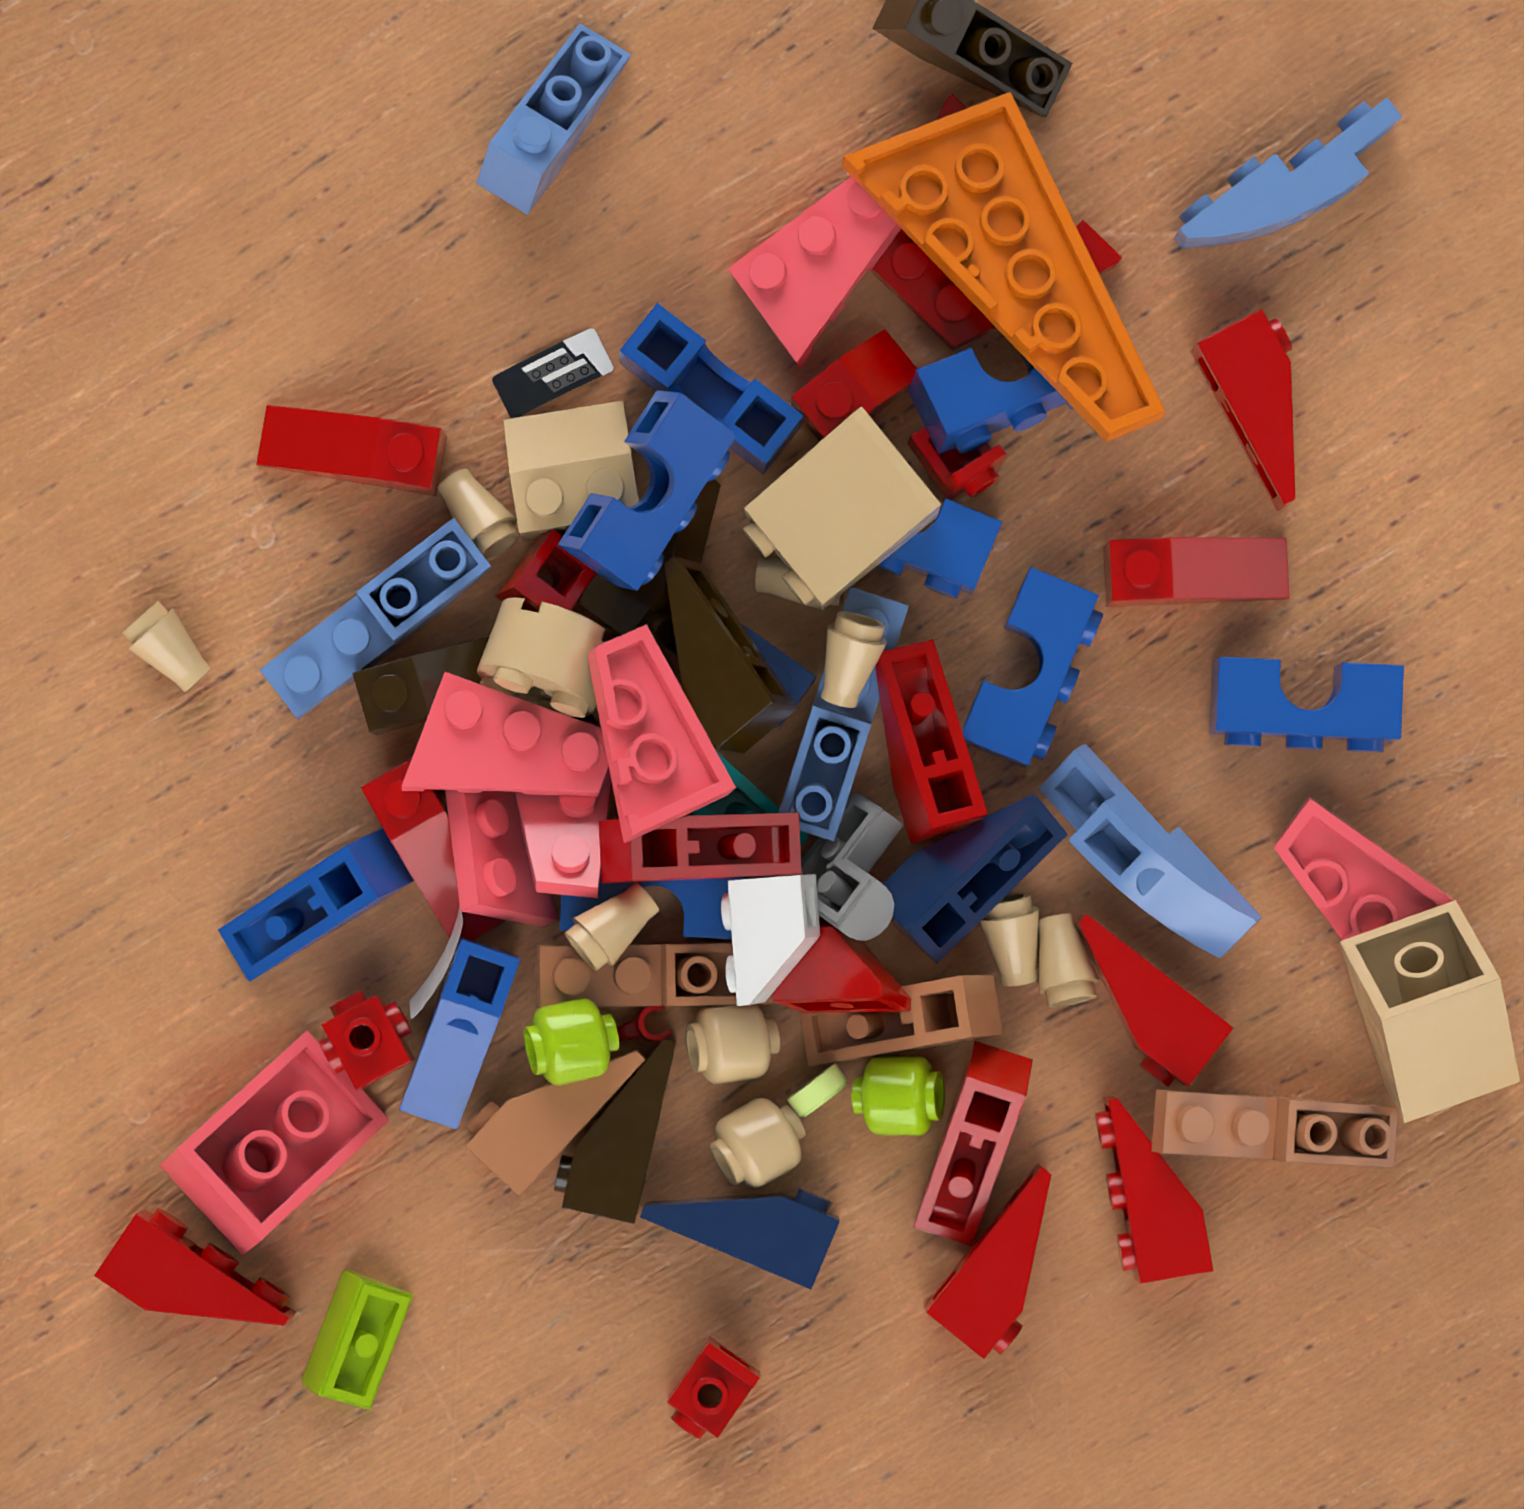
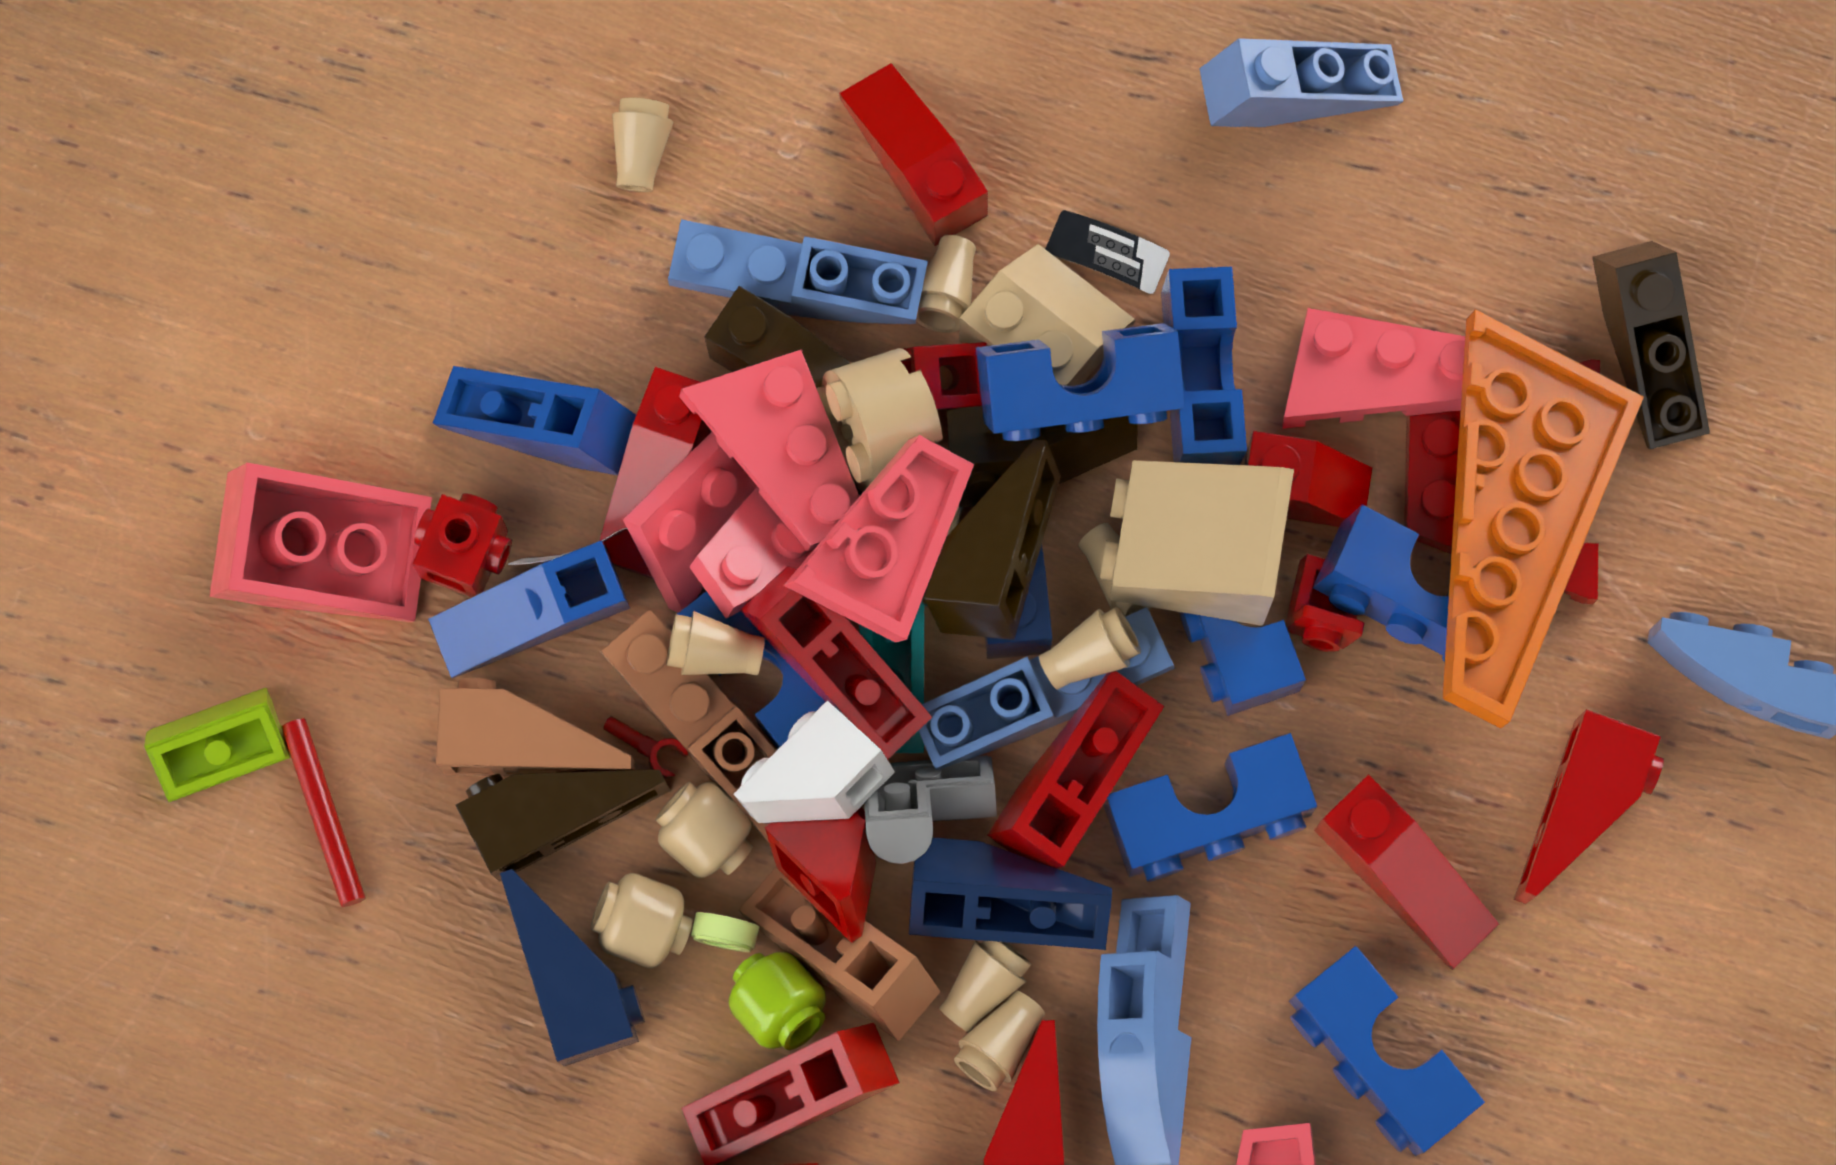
camera: 50 degrees right, 10 degrees down
(174, 1275) = (149, 551): red slope -> none
(475, 1304) = (323, 812): none -> red bar
(570, 1041) = (593, 696): lime head -> none
(711, 1366) = (433, 1060): red brick -> none

